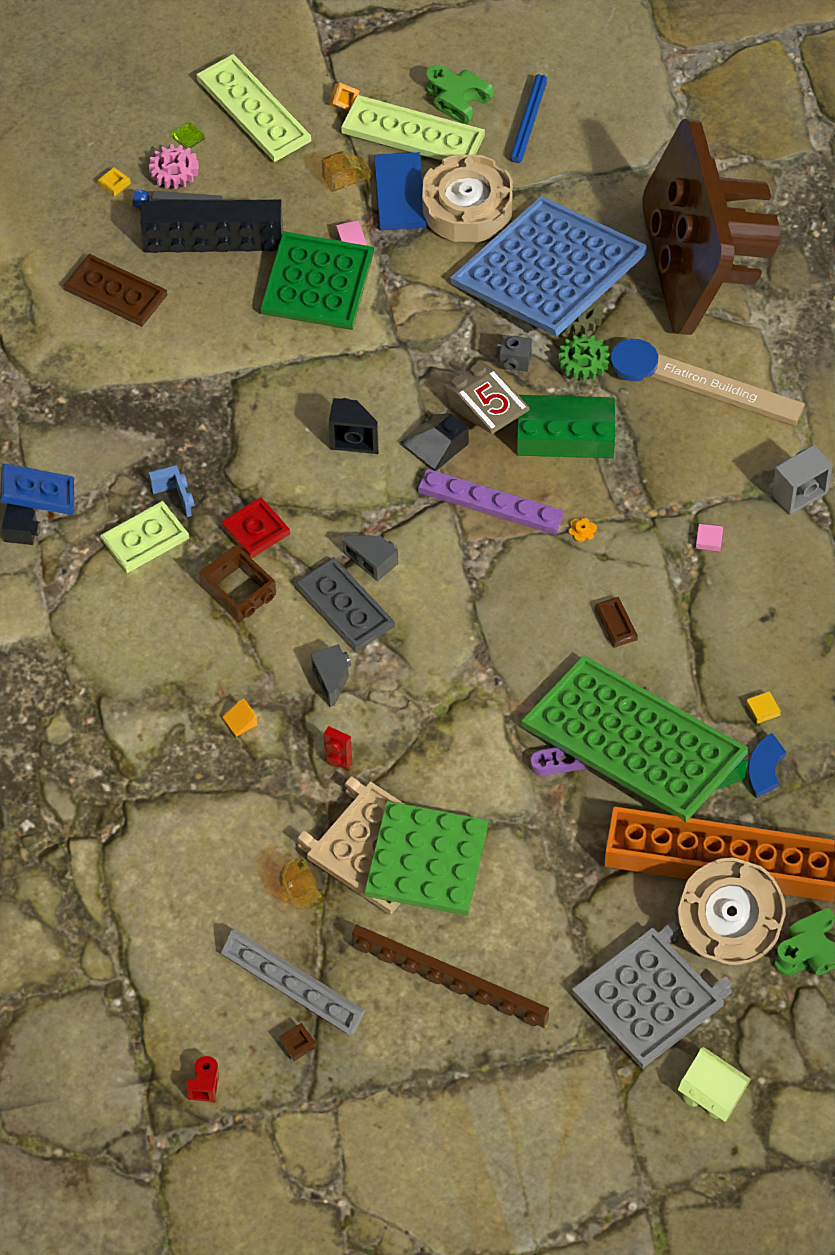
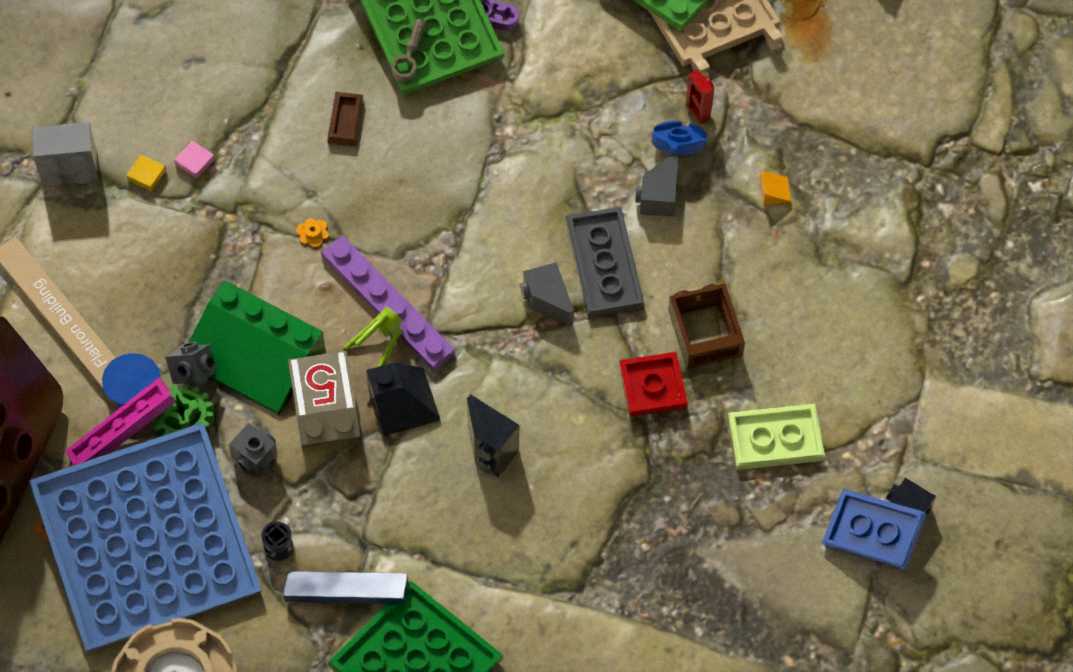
camera: 155 degrees left, 5 degrees up
(170, 478) = (721, 485): medium blue bracket -> none
(338, 710) = (679, 139): none -> blue tile
(393, 301) = (346, 587): none -> tile
(460, 310) = (277, 548): none -> black wheel
(476, 471) = (385, 323): none -> lime plant
(594, 673) = (412, 45): none -> dark tan piece
(598, 383) = (191, 364): none -> dark grey brick
(618, 323) = (122, 423): none -> dark pink plate
(738, 511) = (146, 173): none -> yellow tile

